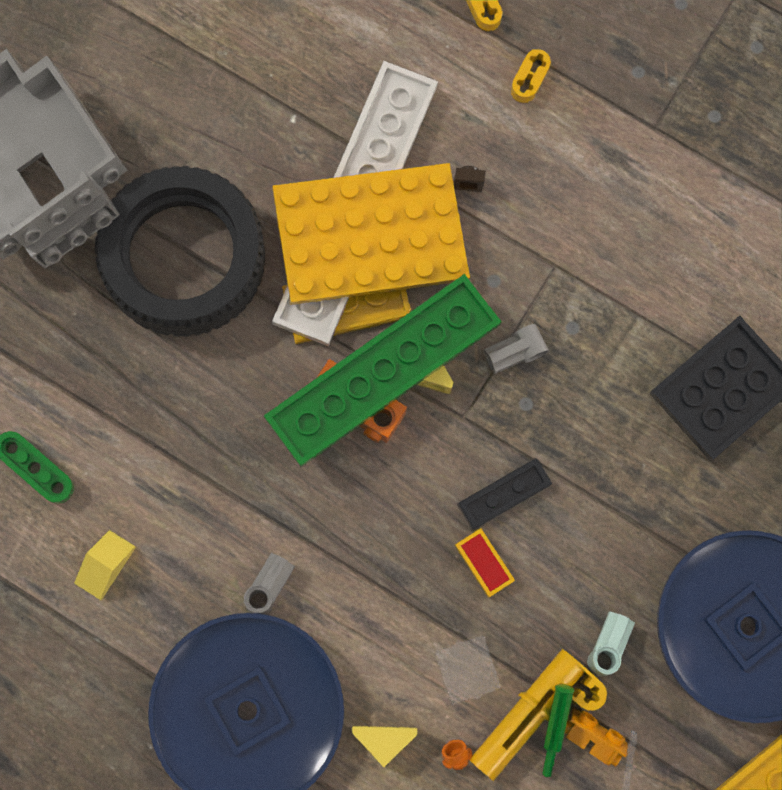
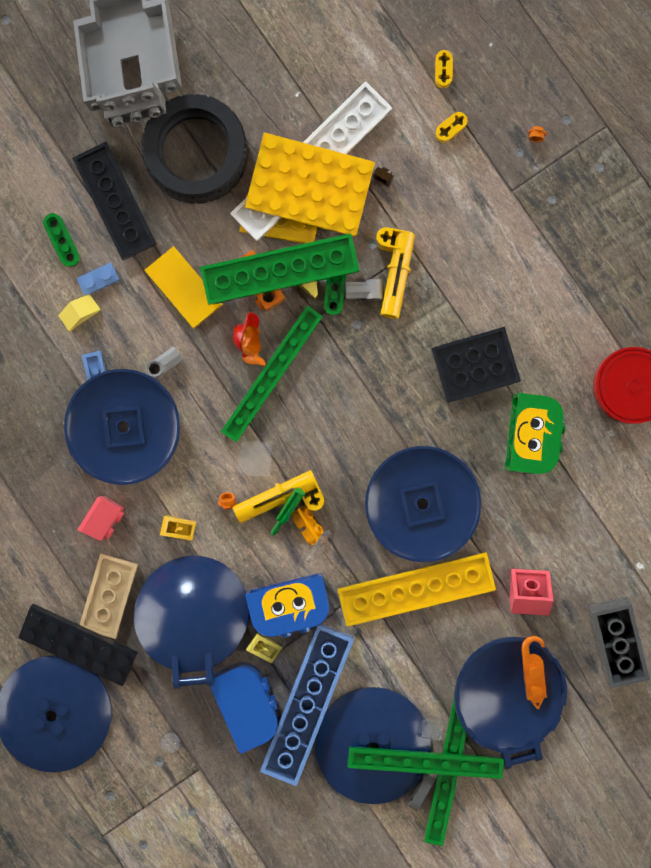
camera: 30 degrees right, 10 degrees up
(91, 376) = (114, 201): none -> black plate
(113, 502) = (98, 279): none -> medium blue plate
(160, 634) = (93, 363): none -> medium blue plate
(246, 459) = (182, 286): none -> yellow tile
(379, 497) = (247, 340): none -> orange hair
(384, 742) = (190, 476): light yellow slope -> none
(436, 533) = (271, 374): none -> green plate
(478, 377) = (334, 296): none -> green plate
(484, 563) = (290, 404): red tile -> none
(504, 494) = (320, 370): black tile -> none
(546, 274) = (402, 248): none -> yellow piece
(612, 642) = (341, 478): light aqua piece -> none
(653, 37) = (537, 134): none -> orange plate

